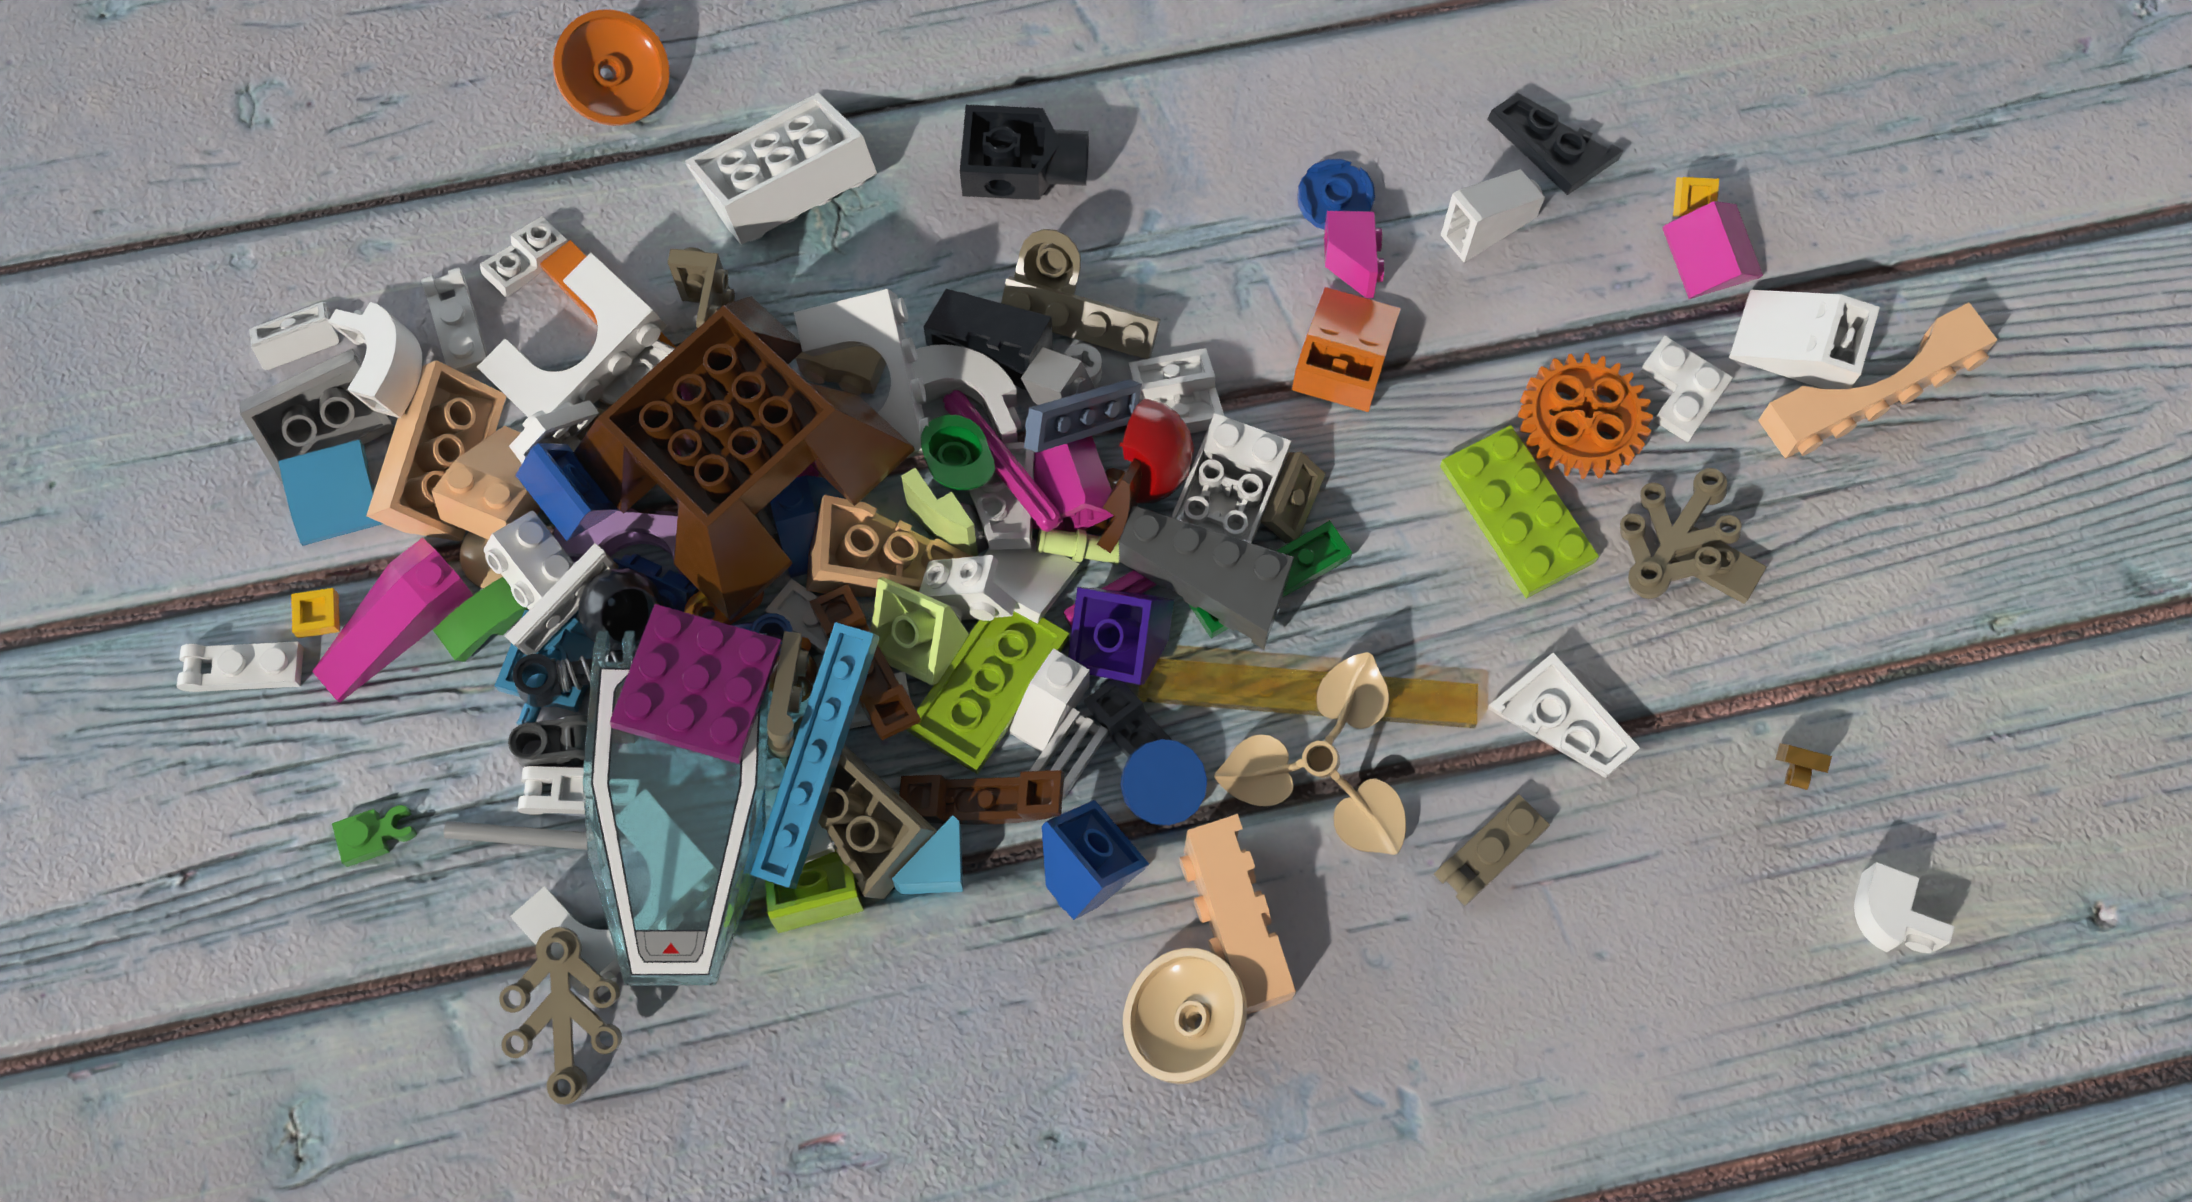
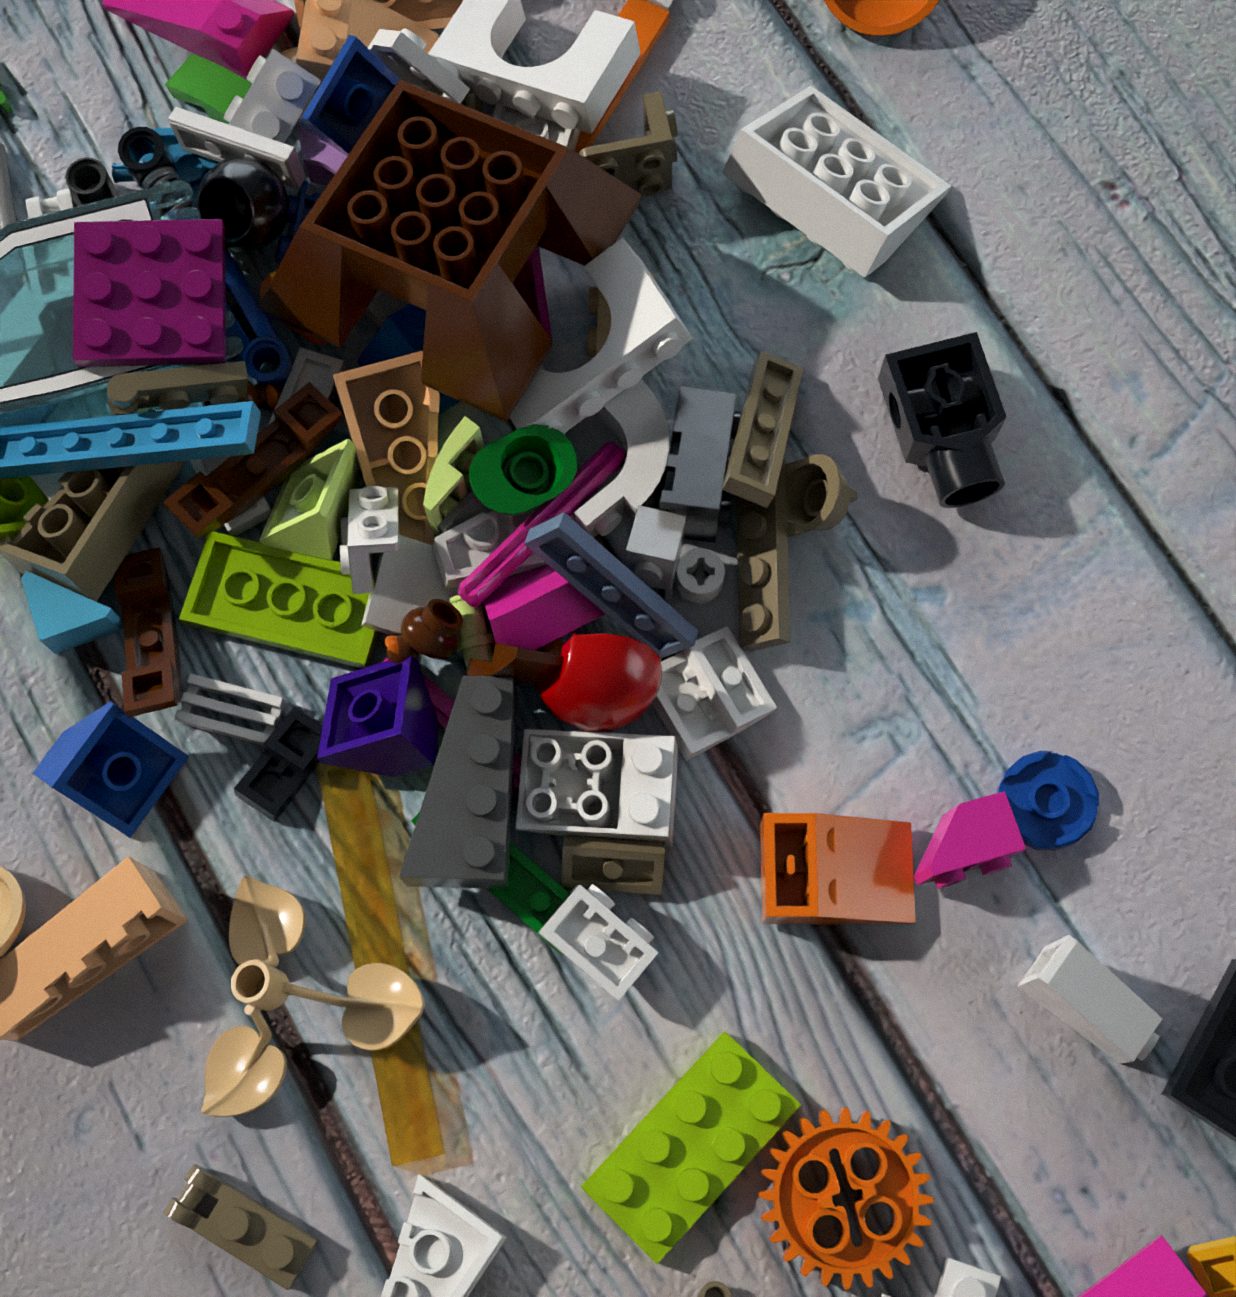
camera: 75 degrees right, 5 degrees up
(984, 277) = (763, 430): none -> dark tan plate
(1049, 699) = (285, 669): white slope -> none
(1063, 568) = (427, 631): none -> reddish brown animal
(1163, 782) = (218, 822): blue tile -> none
(1352, 518) = (600, 941): none -> white bracket

